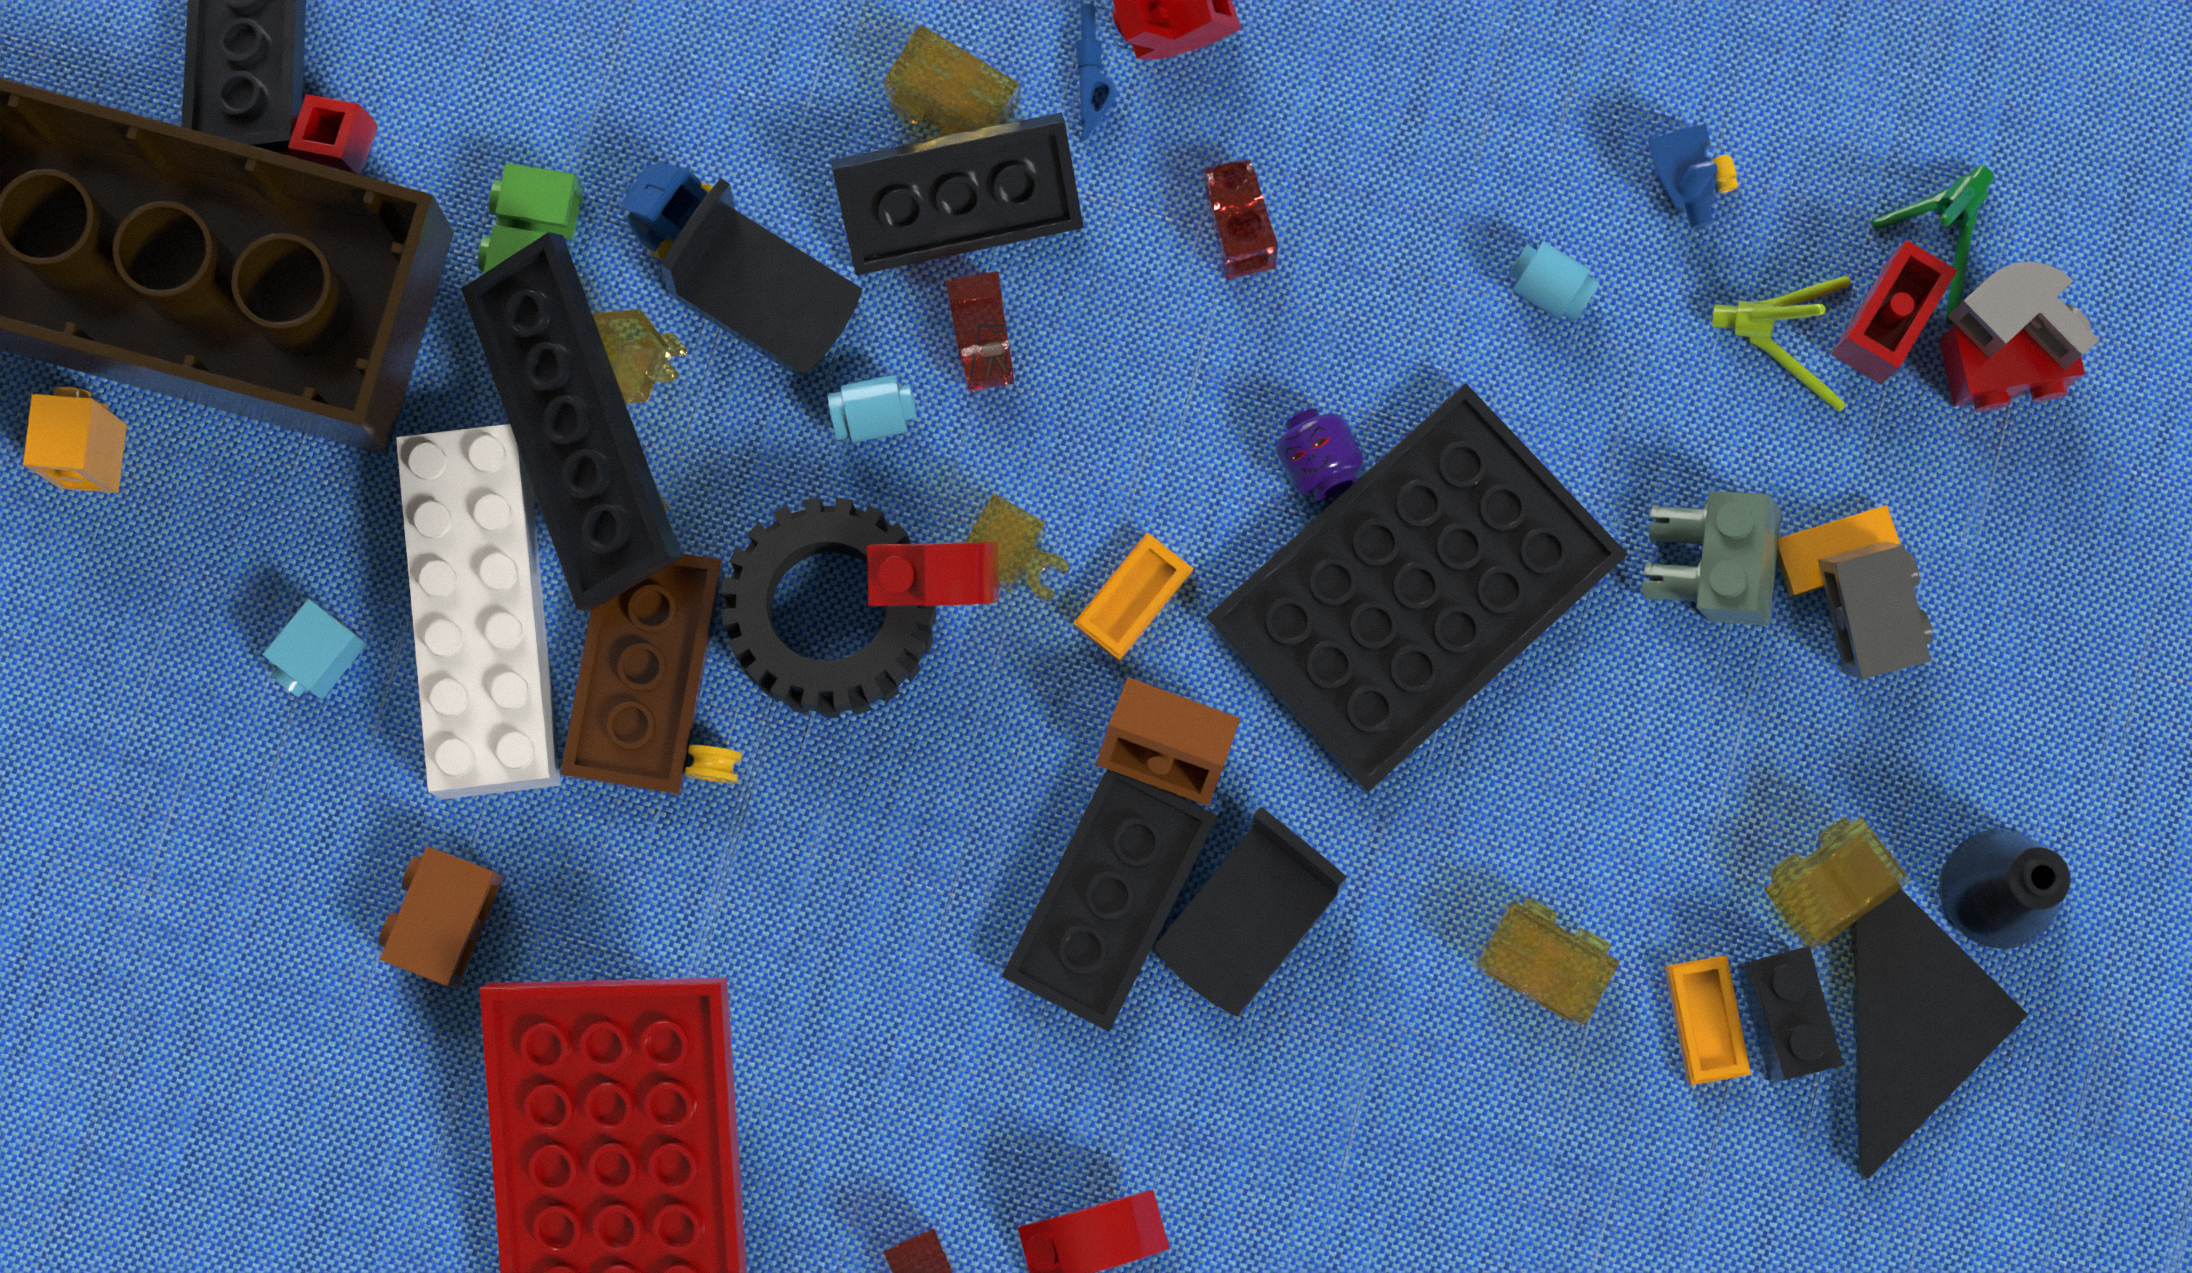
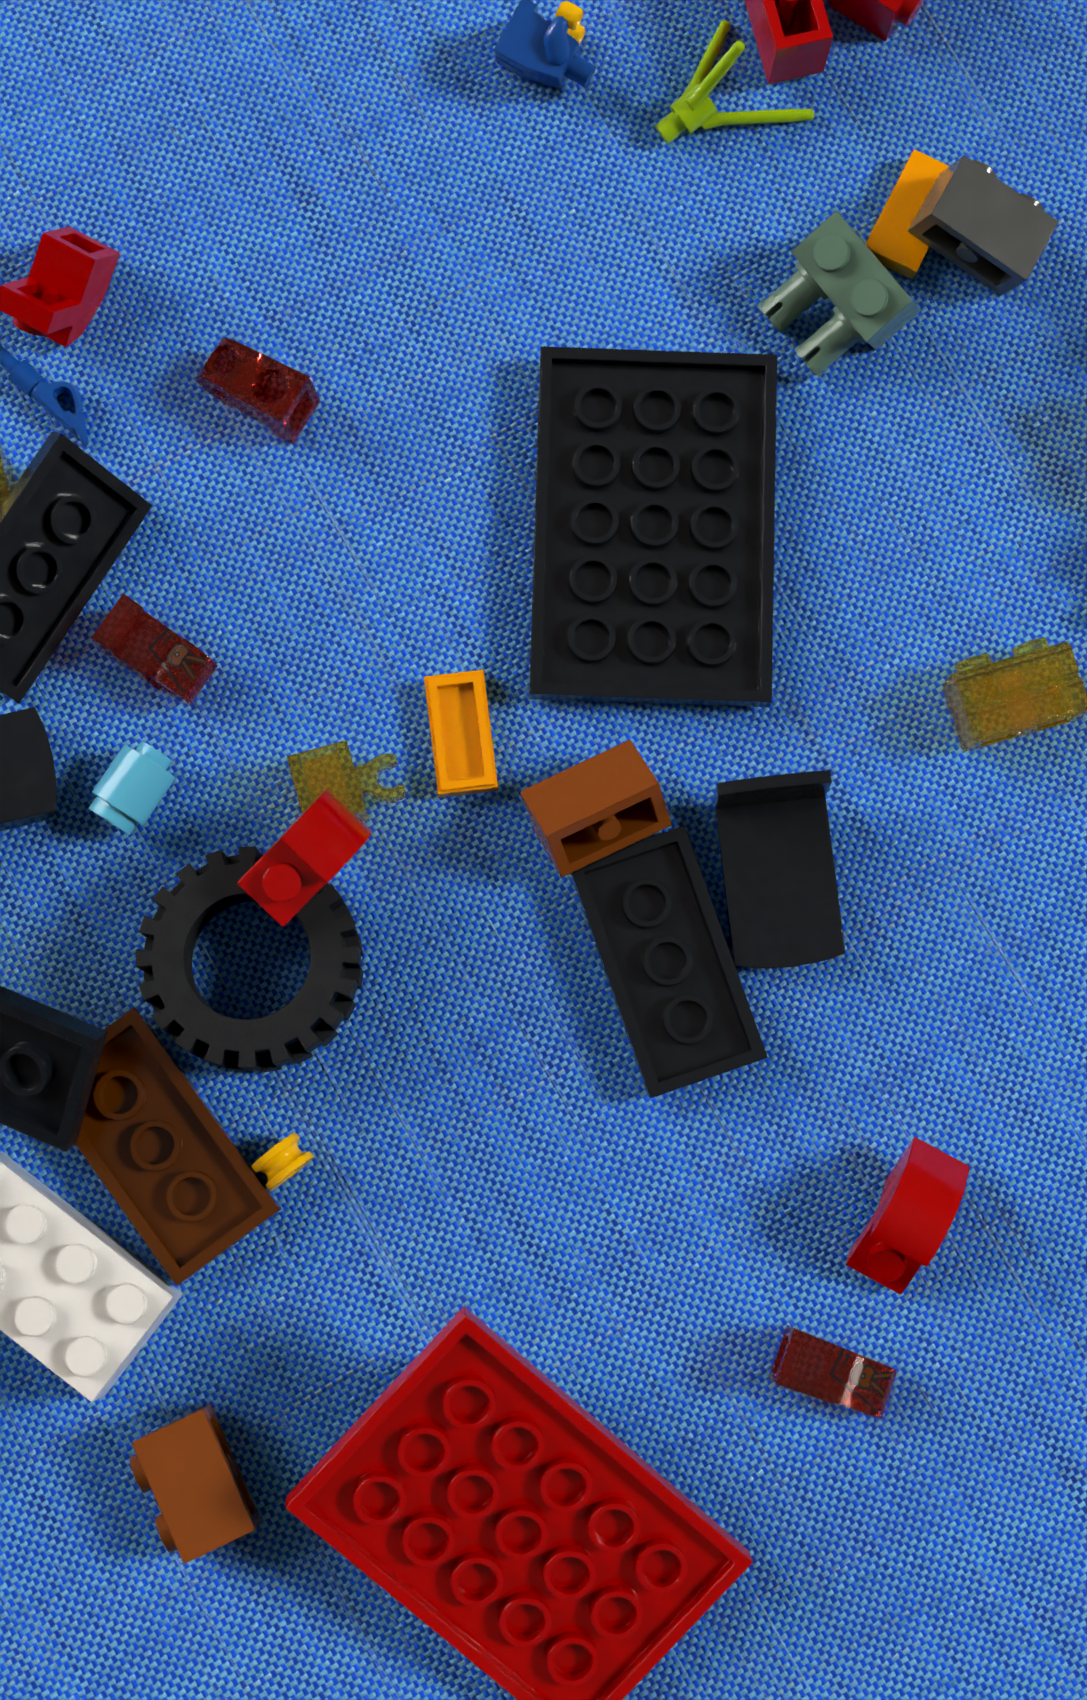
camera: 50 degrees left, 0 degrees up
(1319, 454) = (490, 497): dark purple head -> none
(1553, 281) = (527, 216): medium azure brick -> none

